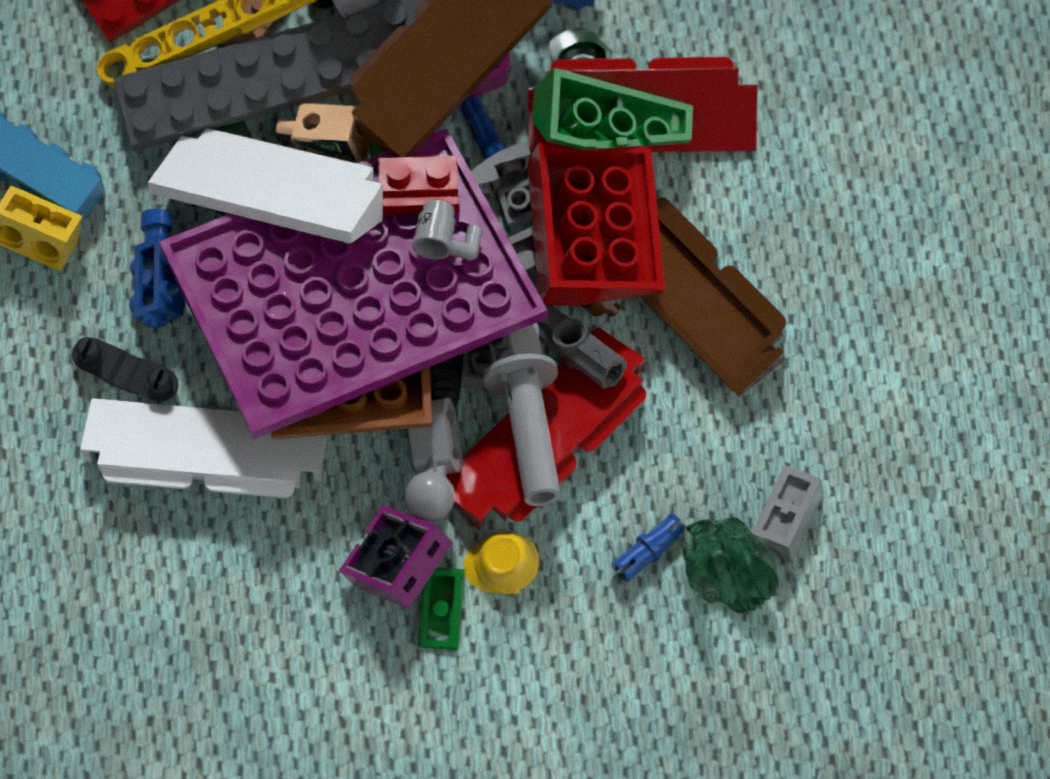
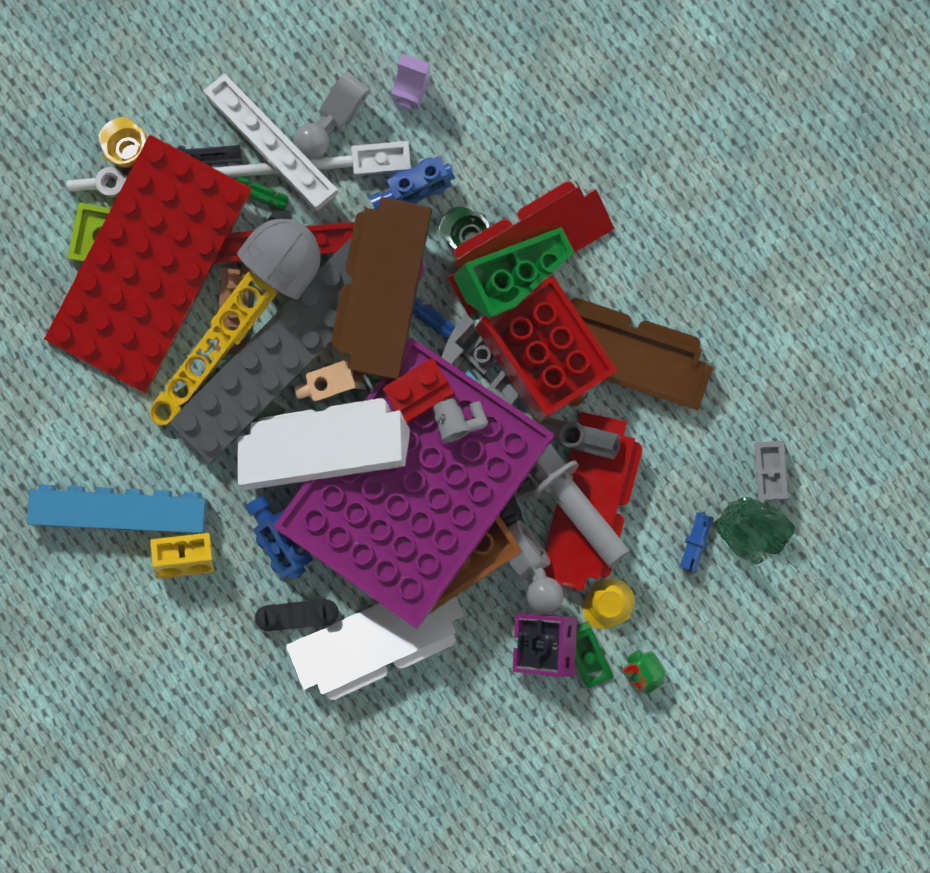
camera: 30 degrees left, 15 degrees up
(497, 660) = (644, 671): none -> green head

